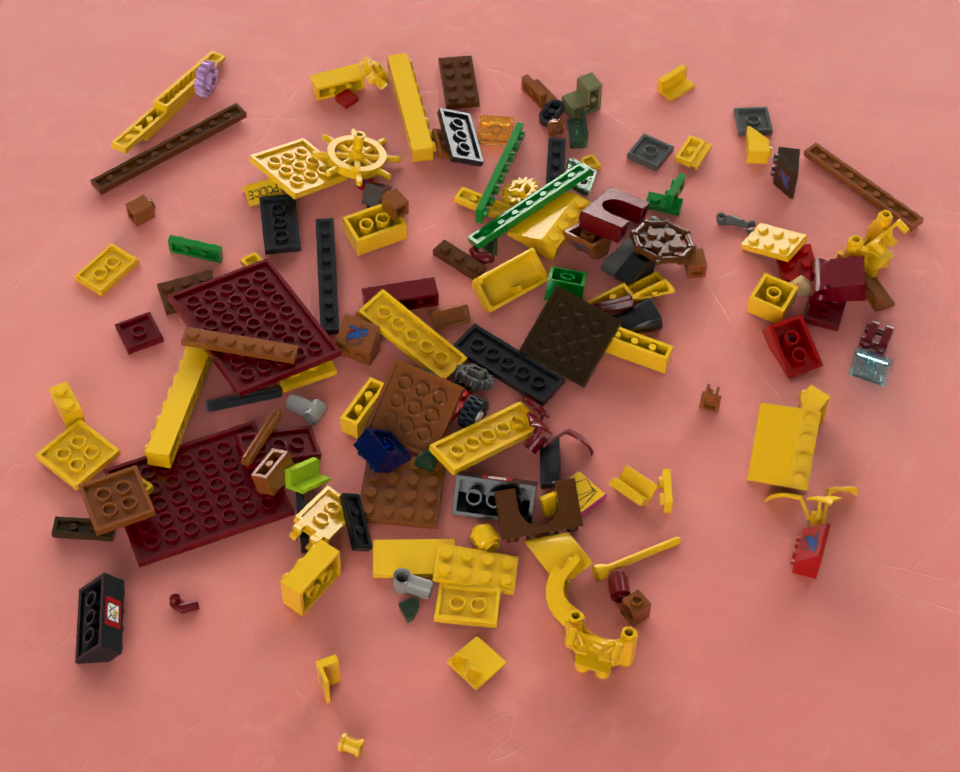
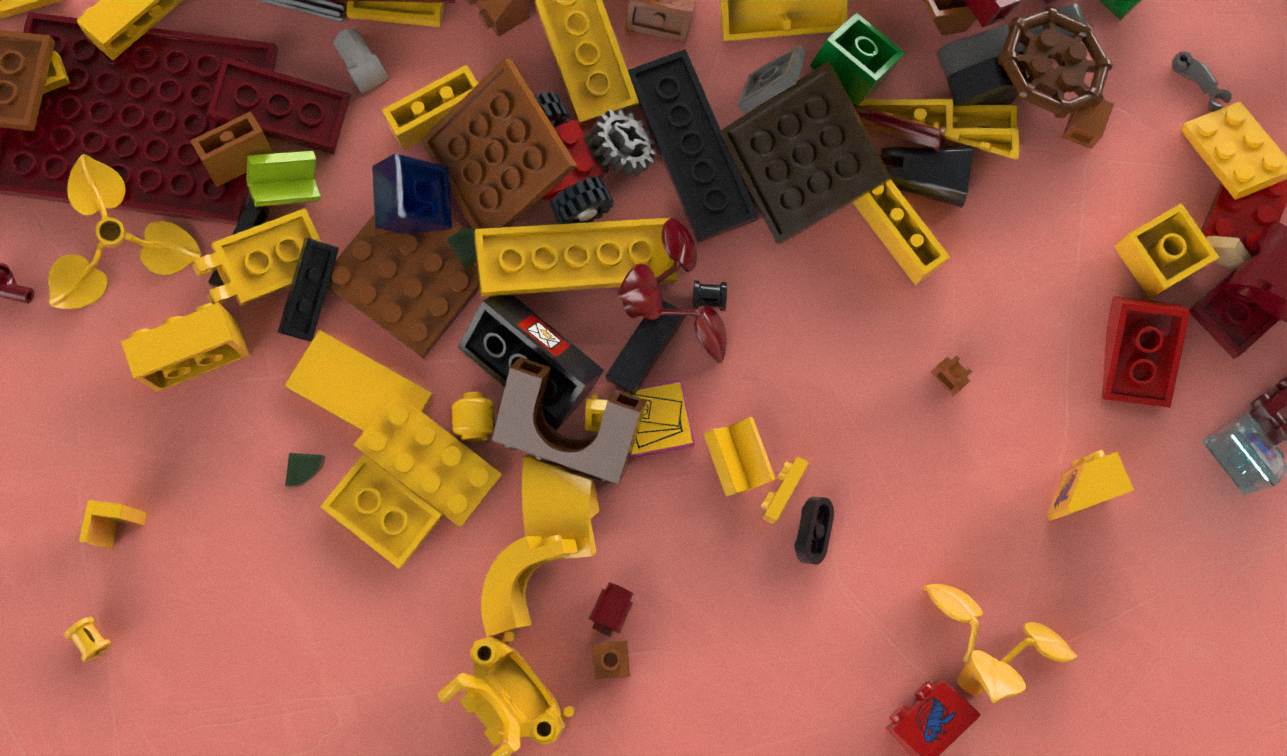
camera: 30 degrees right, 25 degrees up
(208, 529) = (95, 188): none -> yellow plant
(261, 437) = (253, 82): dark orange axle -> none
(413, 585) = (327, 436): light grey piece -> none
(476, 663) = (334, 610): yellow plate -> none
(530, 312) = (772, 79): none -> dark grey tile
(571, 423) = (709, 295): none -> black bush
(601, 571) = (607, 567): yellow piece -> none
(694, 501) = (814, 530): none -> black plate
(784, 446) = (1006, 530): yellow slope -> none

